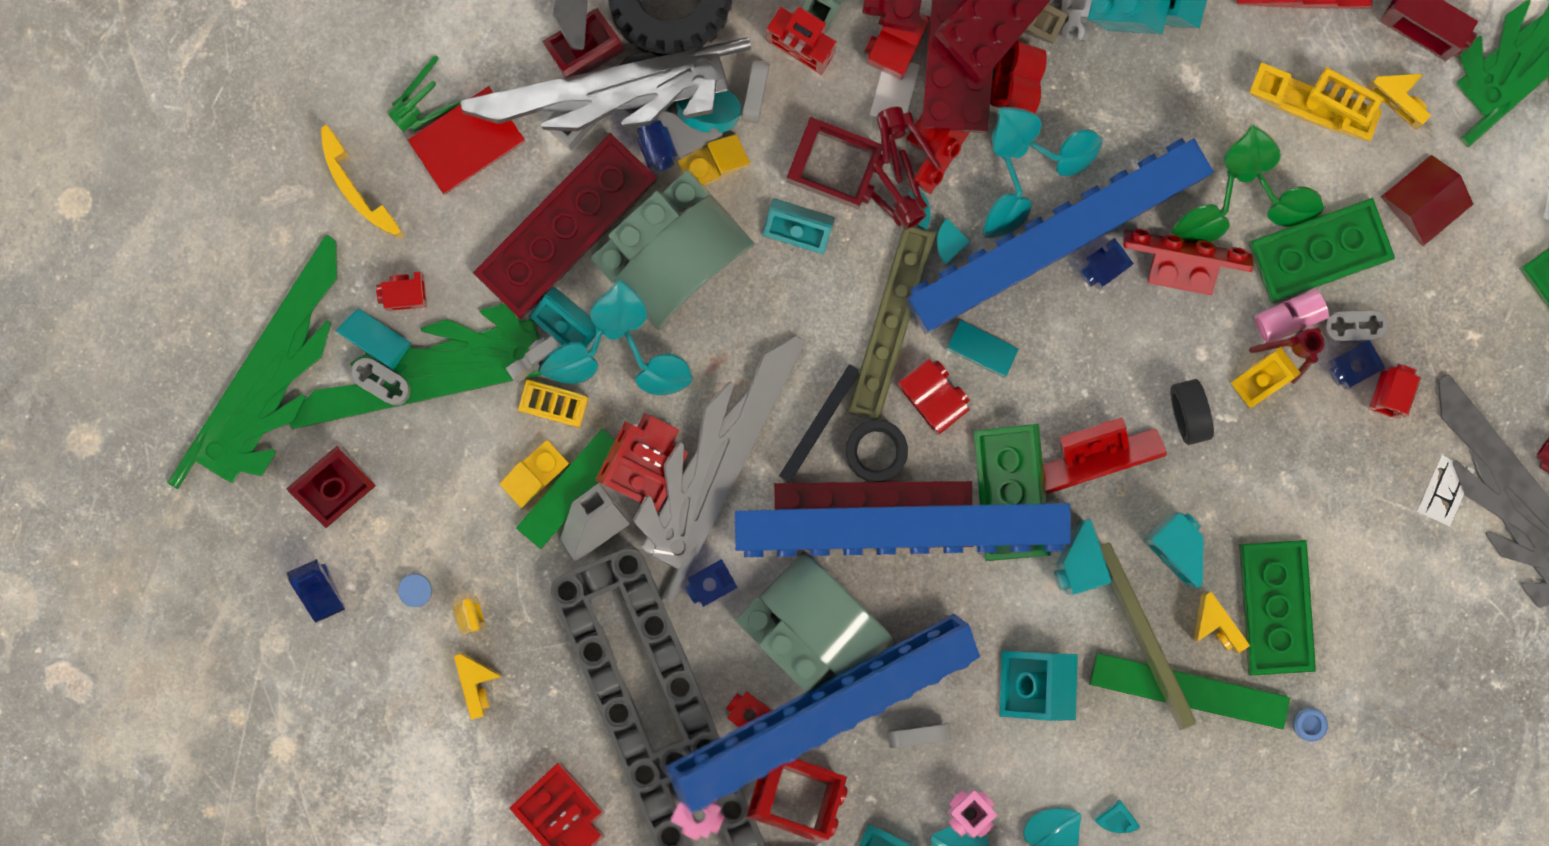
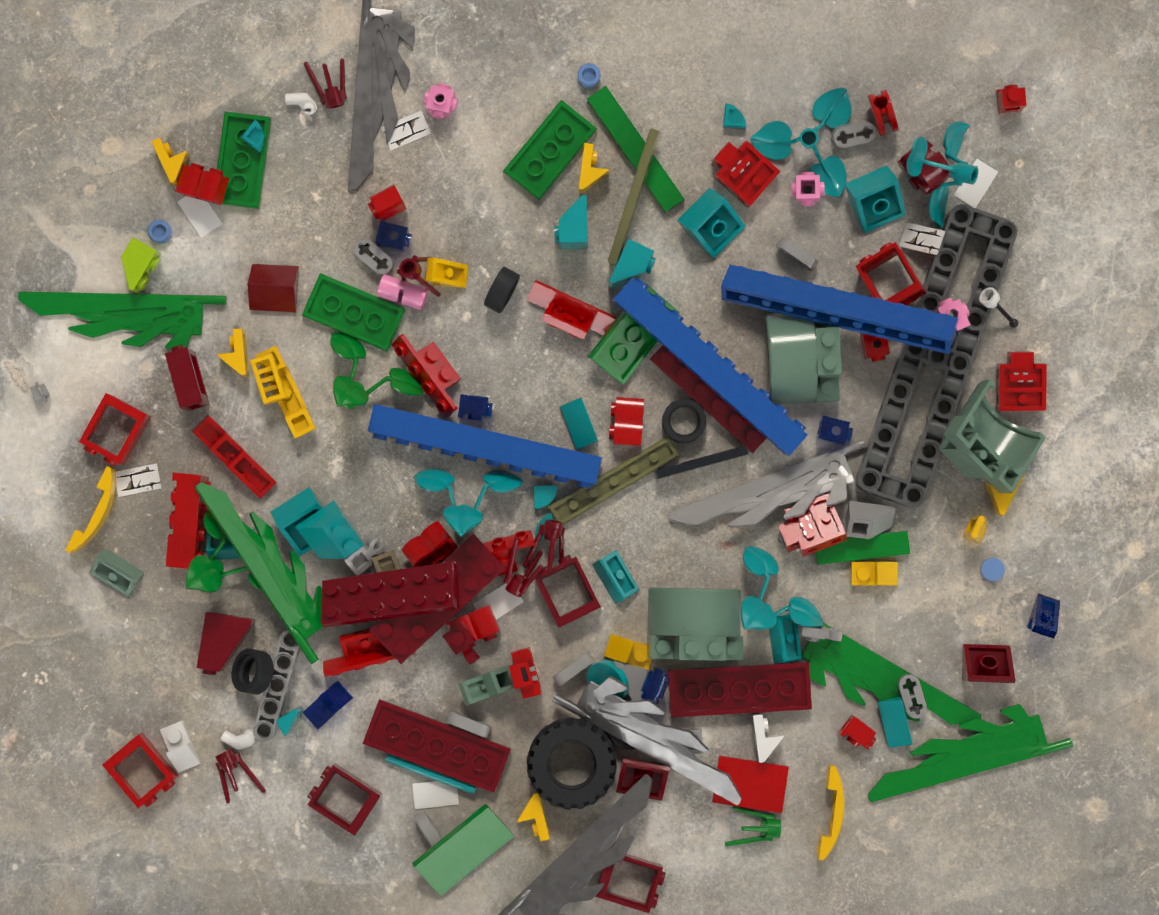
camera: 135 degrees left, 0 degrees up
(489, 193) = (763, 743): none -> white slope
(537, 717) = (988, 444): none -> sand green piece
(579, 412) = (838, 597): yellow slope -> none
(1054, 771) = (744, 171): none -> red piece
(1428, 552) = (444, 108): none -> bright pink brick

